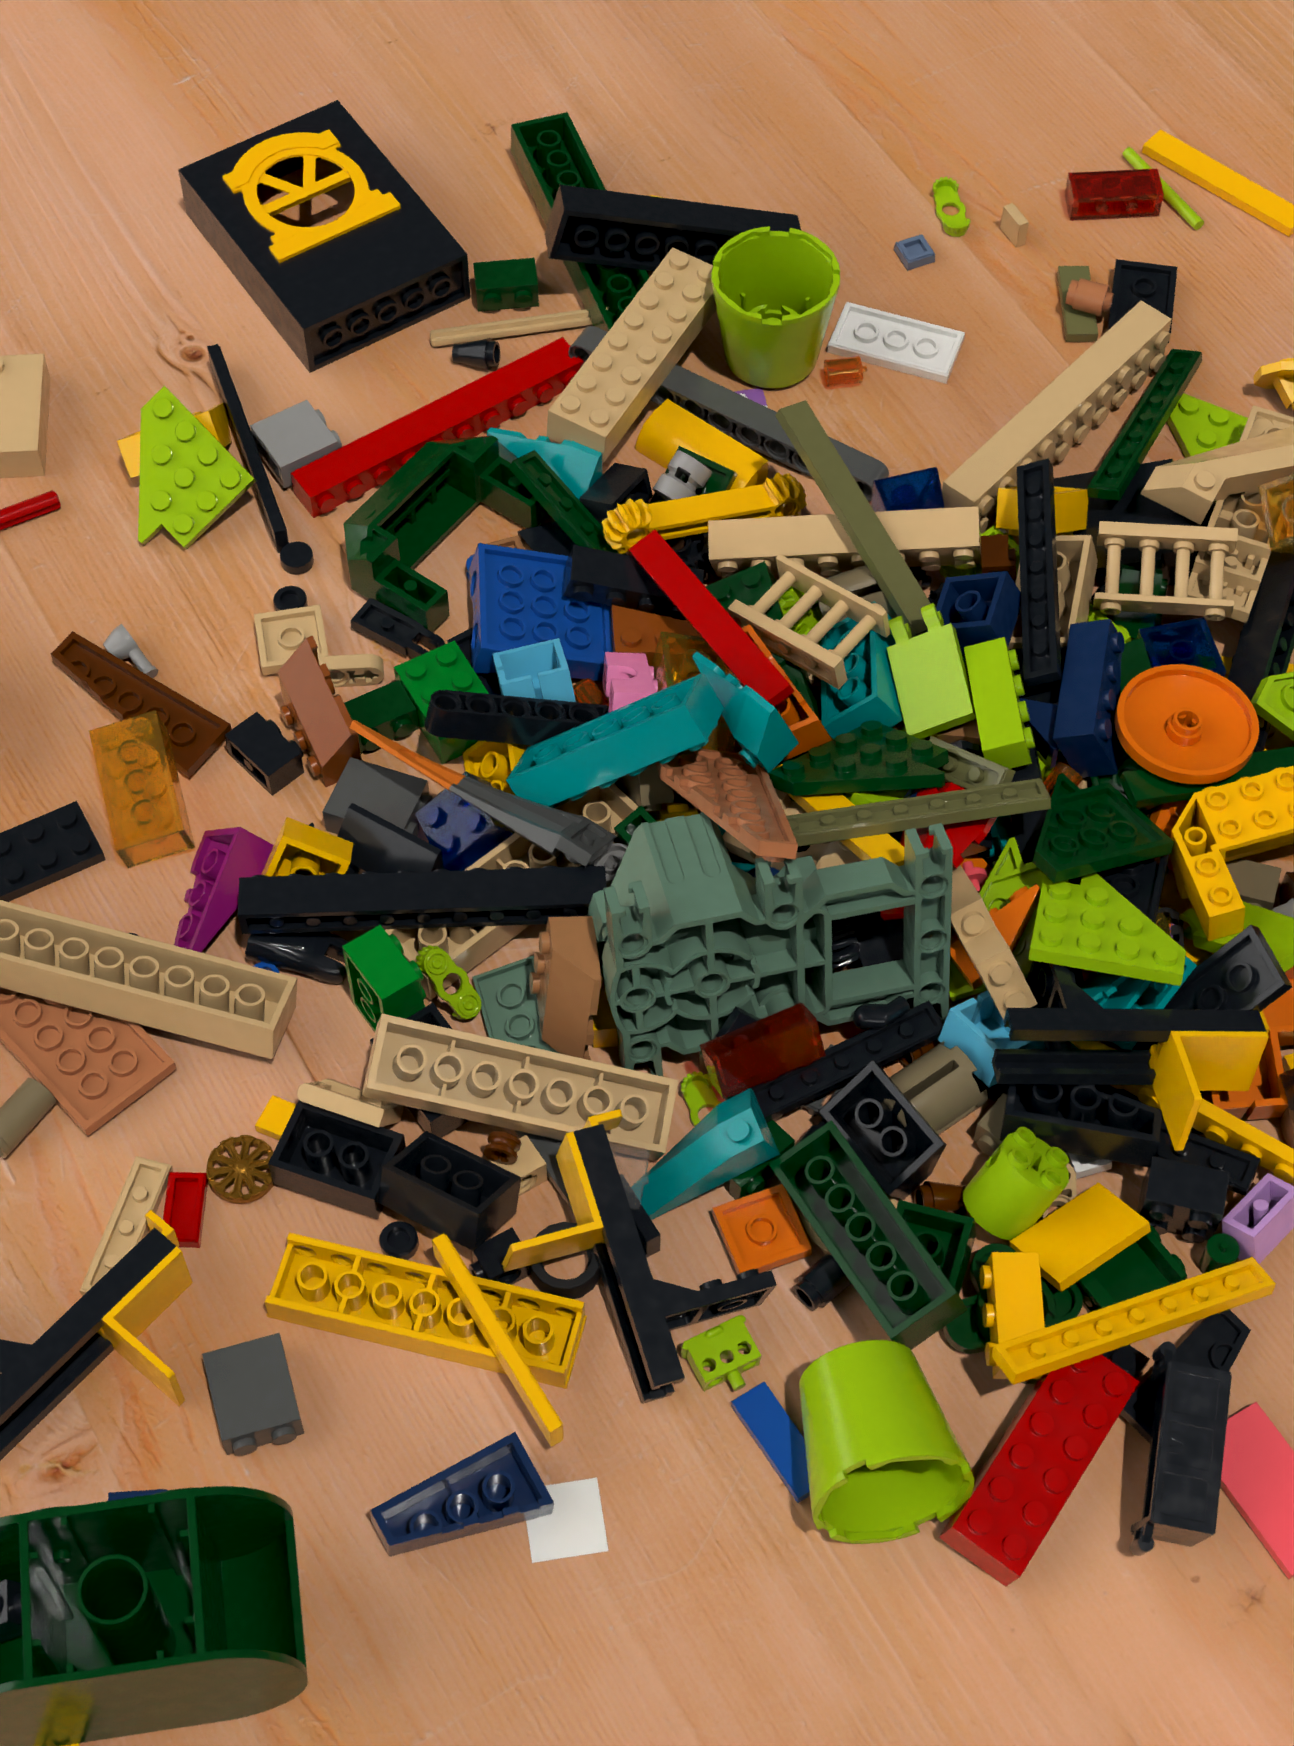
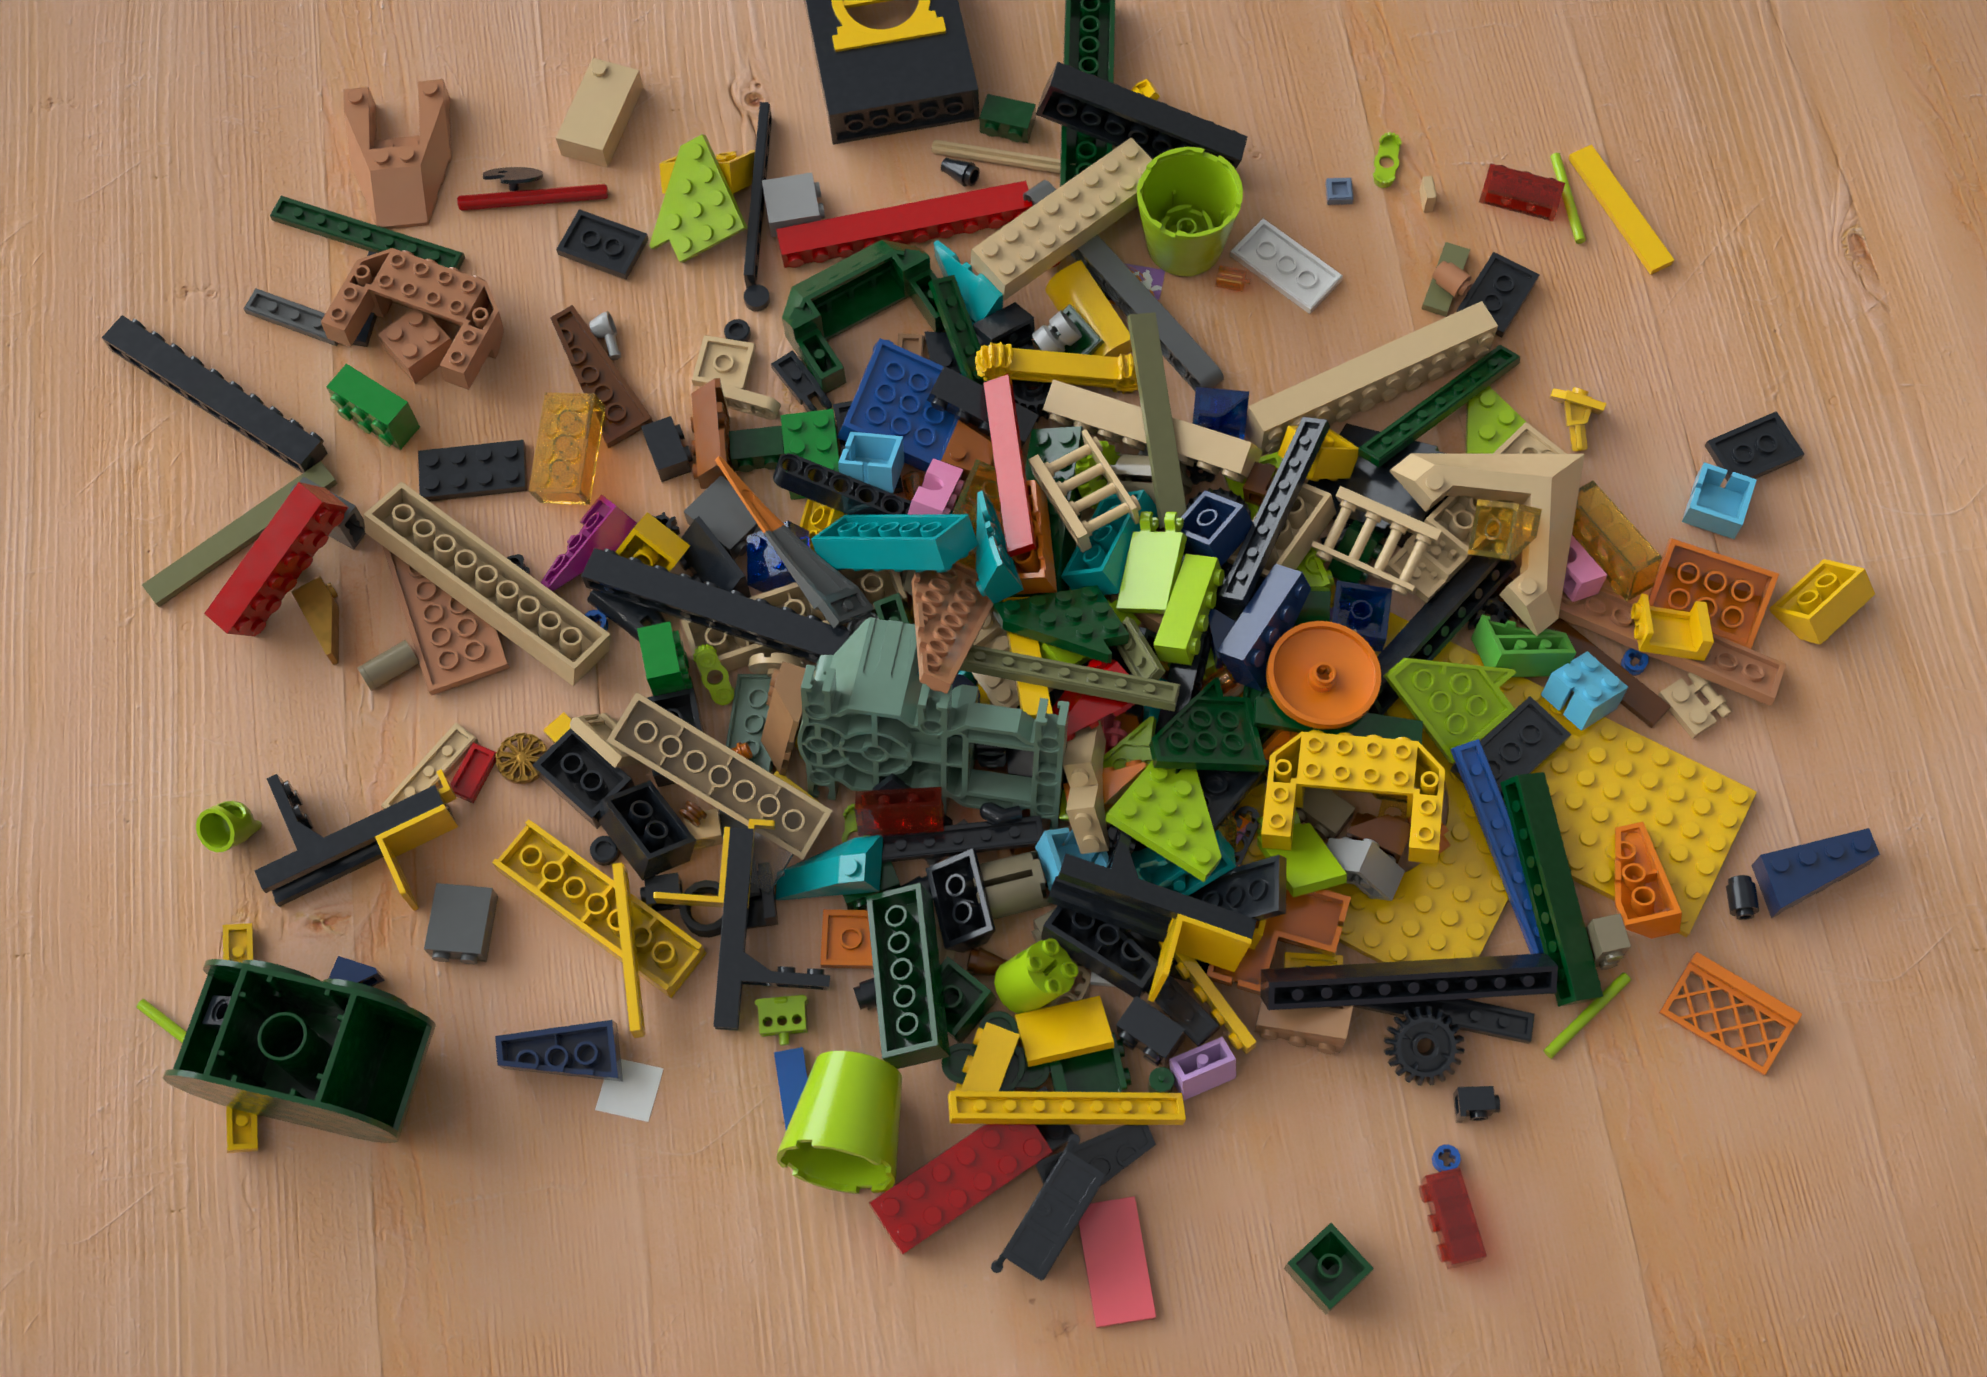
camera: 25 degrees right, 10 degrees up
(79, 556) = (602, 244): none -> black plate
(515, 947) = (765, 665): none -> tan plate

